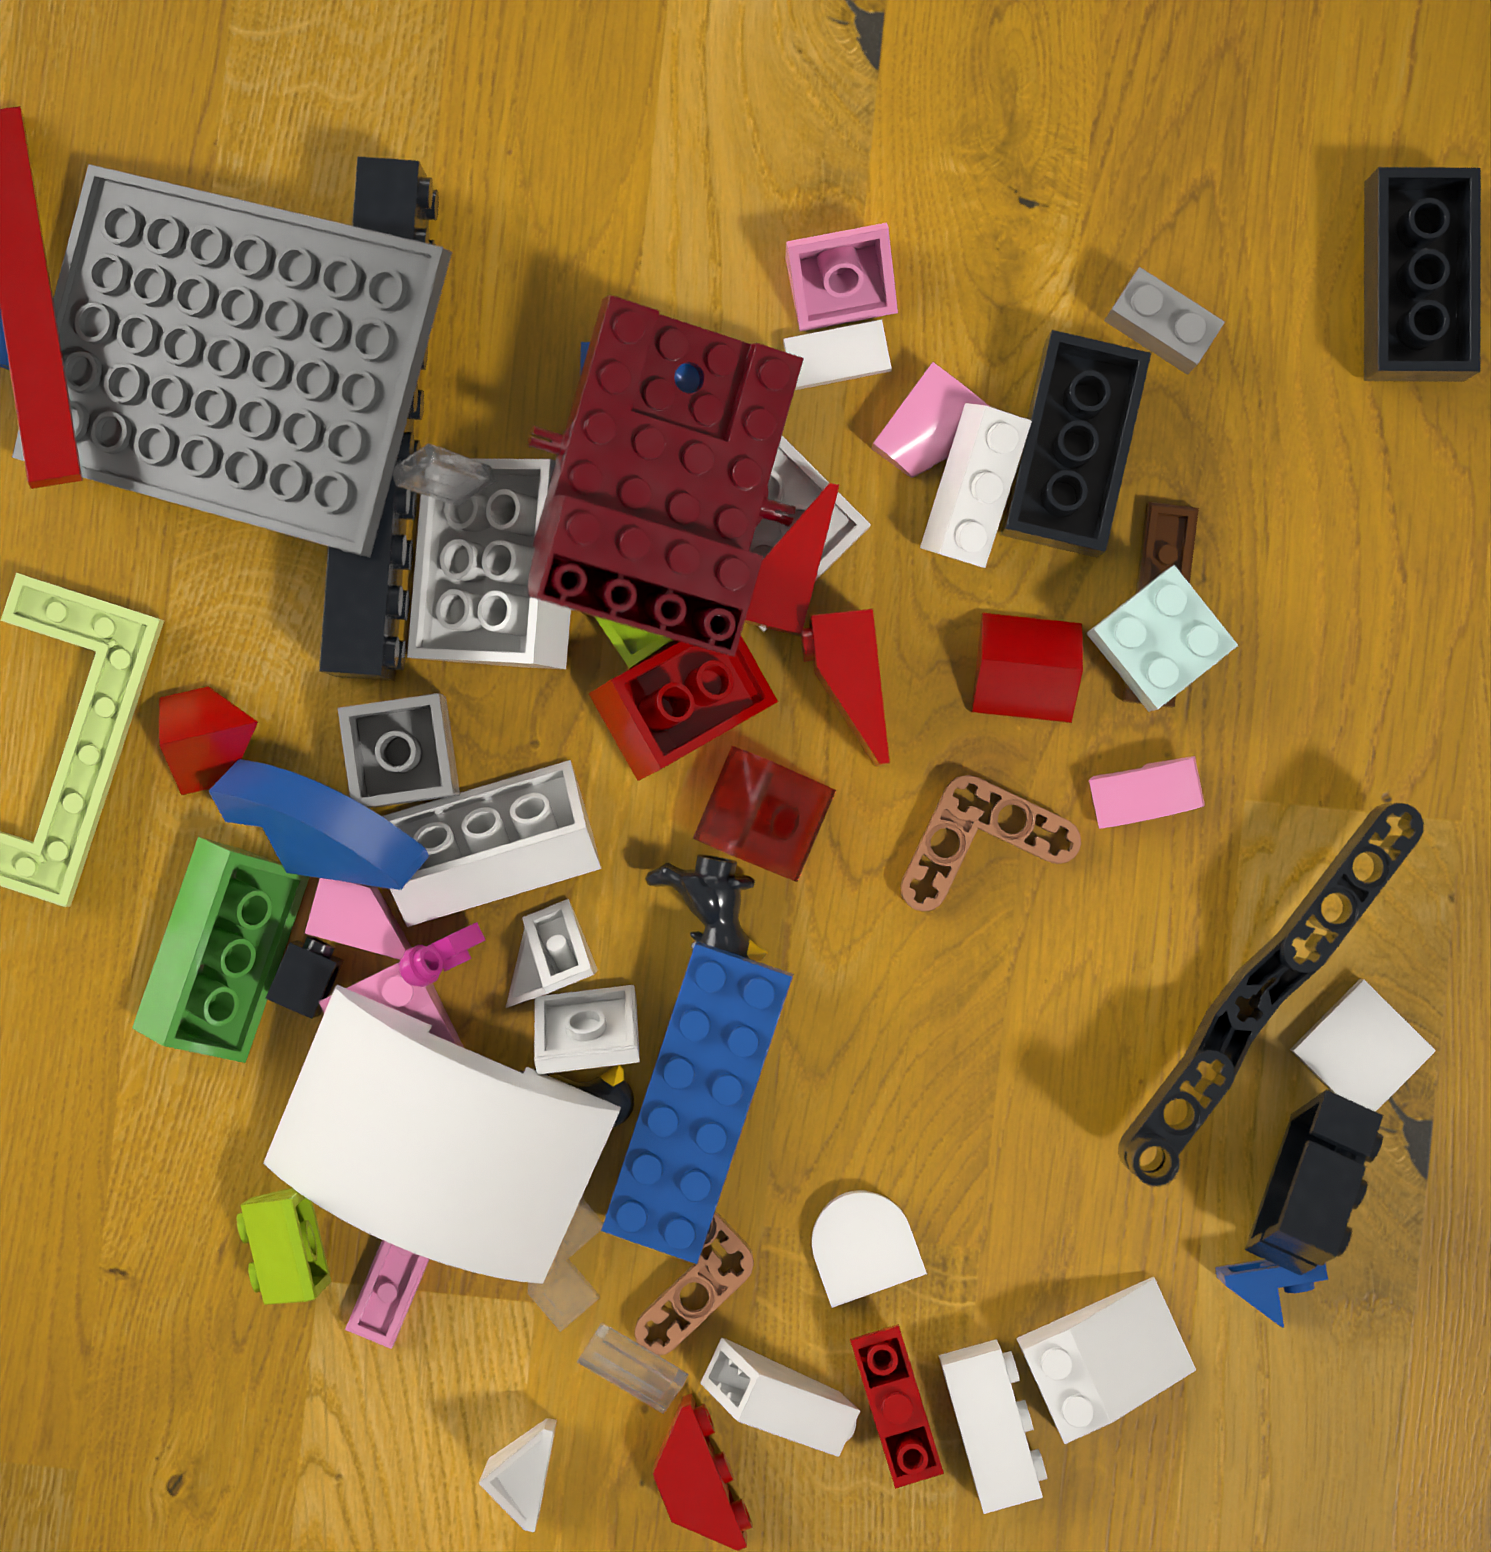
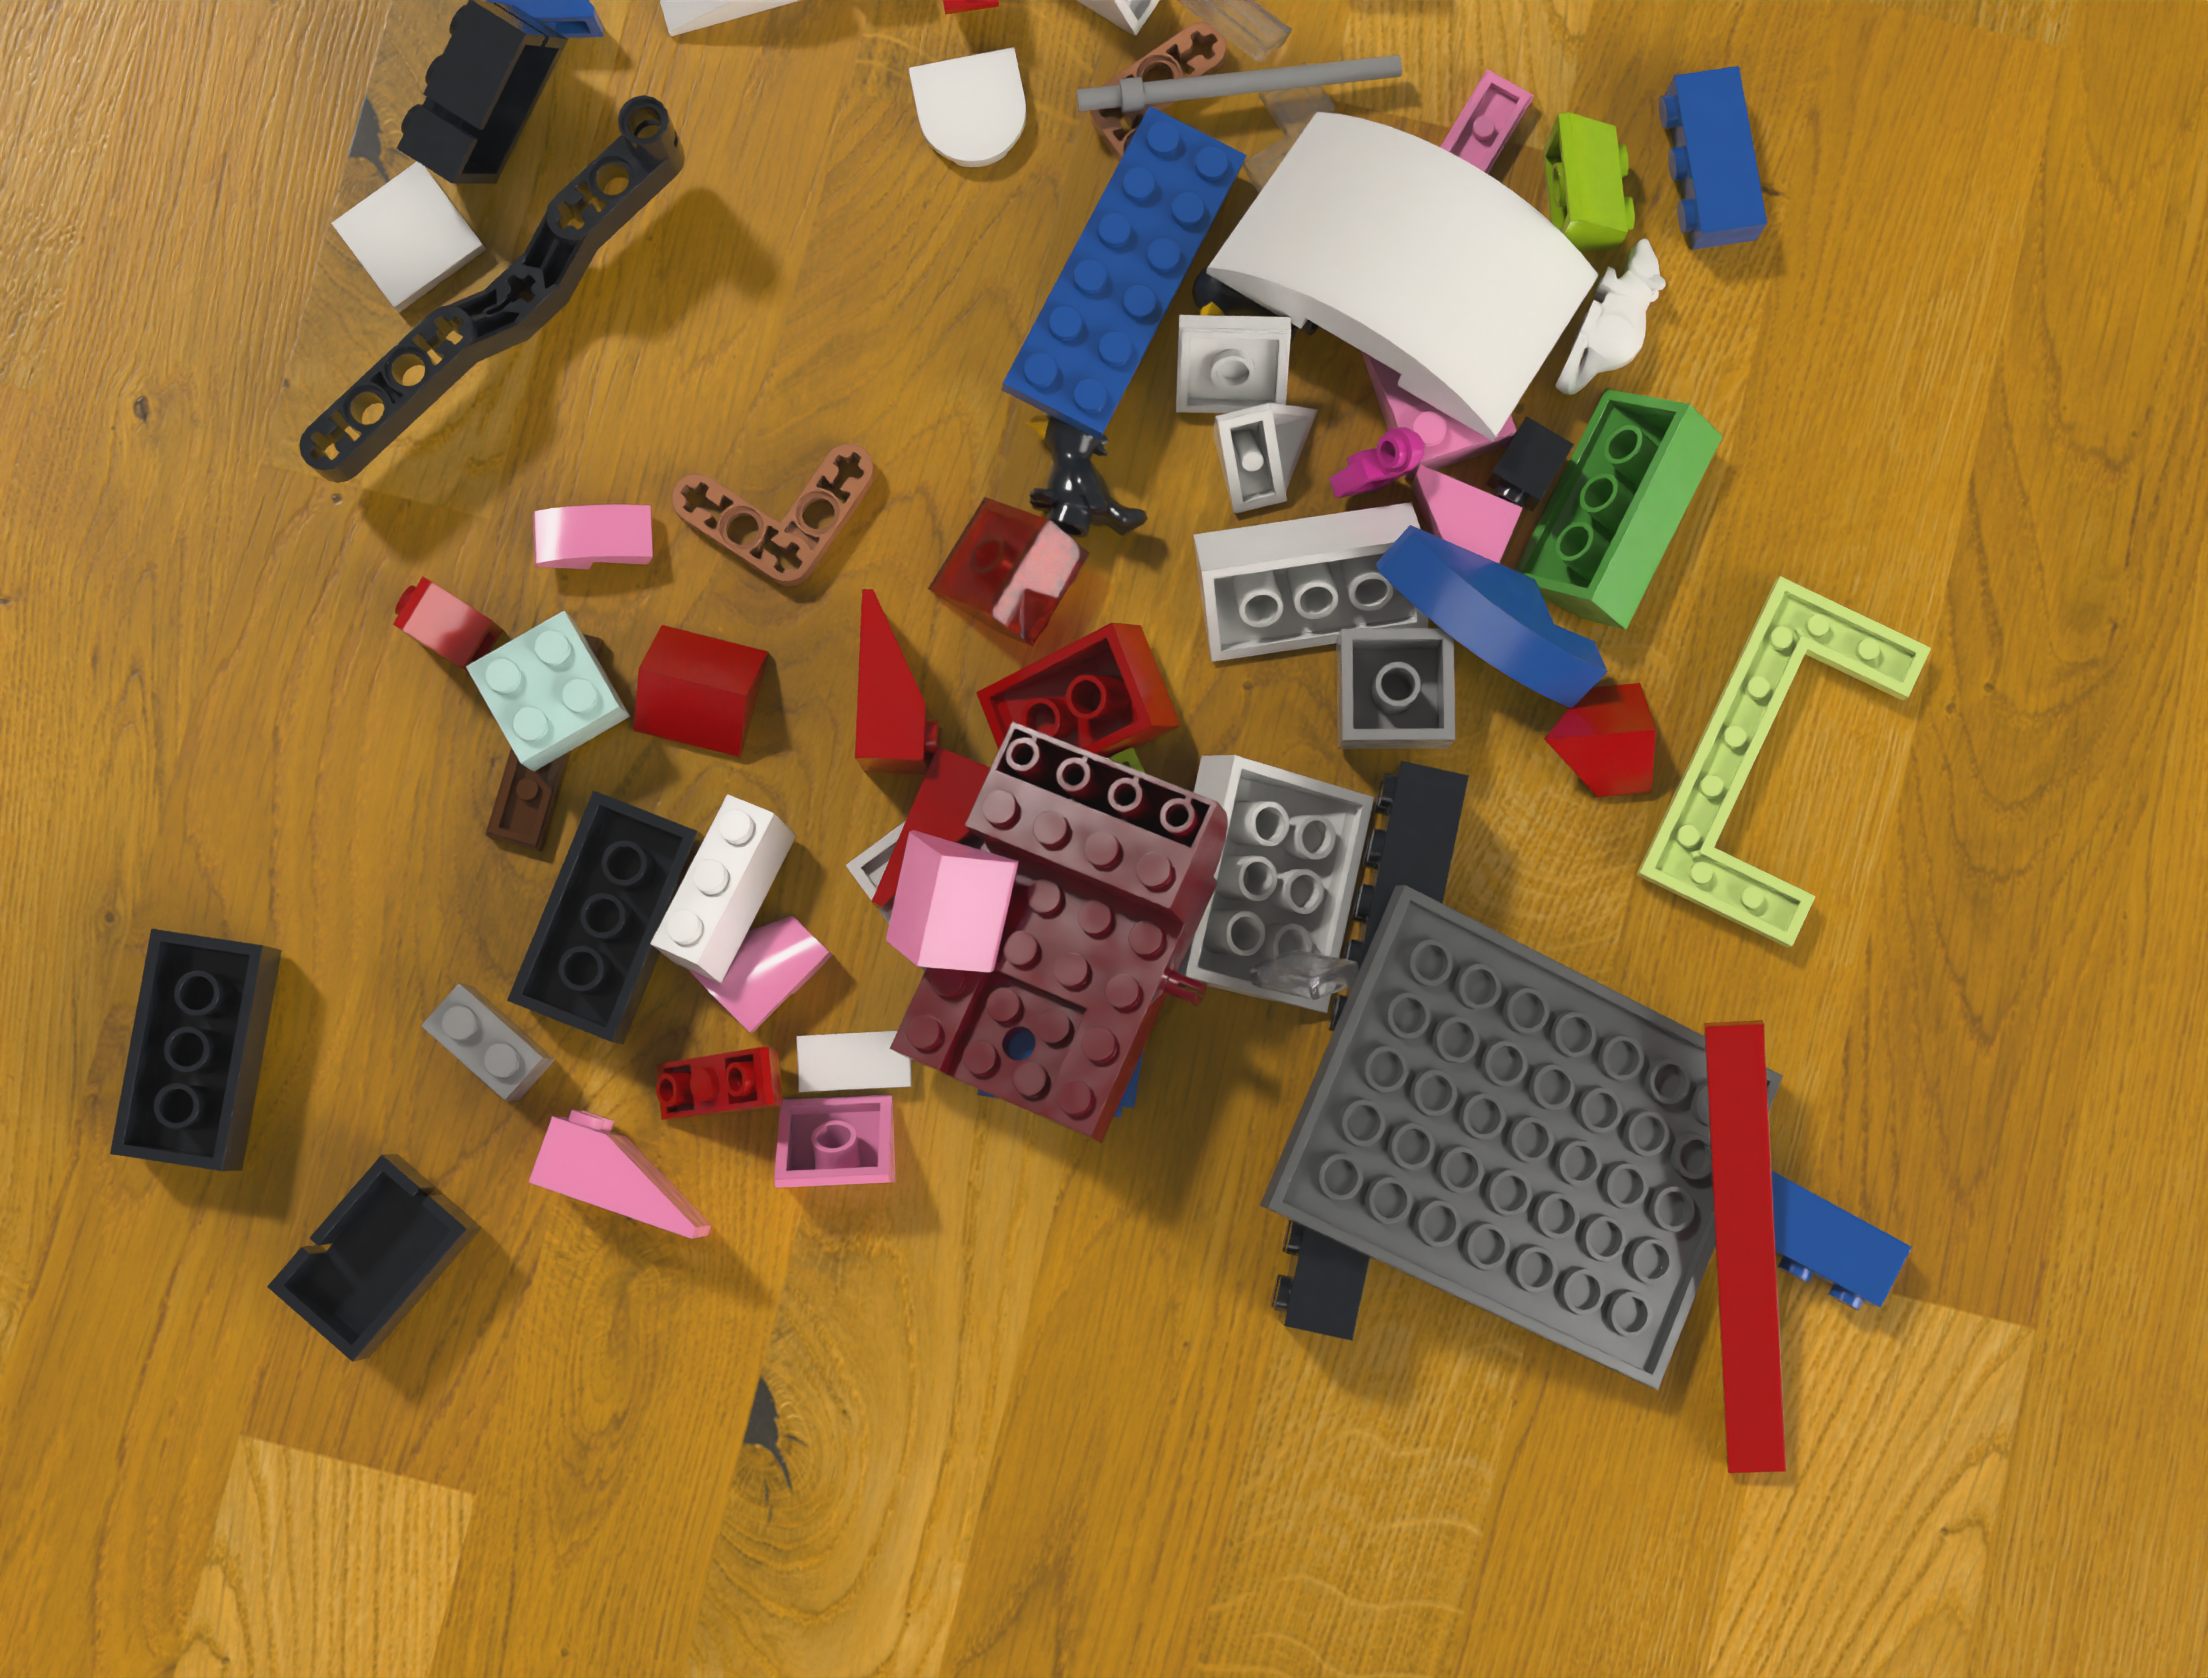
camera: 175 degrees left, 5 degrees down
(172, 1291) = (1713, 158): none -> blue brick
(241, 1118) = (1617, 326): none -> white animal
(713, 1274) = (1133, 94): none -> light grey bar
(767, 486) = (950, 904): none -> bright pink slope
(950, 313) = (720, 1083): none -> red slope
(1034, 216) = (609, 1171): none -> bright pink slope
(1230, 116) = (382, 1259): none -> black piece
(1264, 686) = (445, 624): none -> red slope

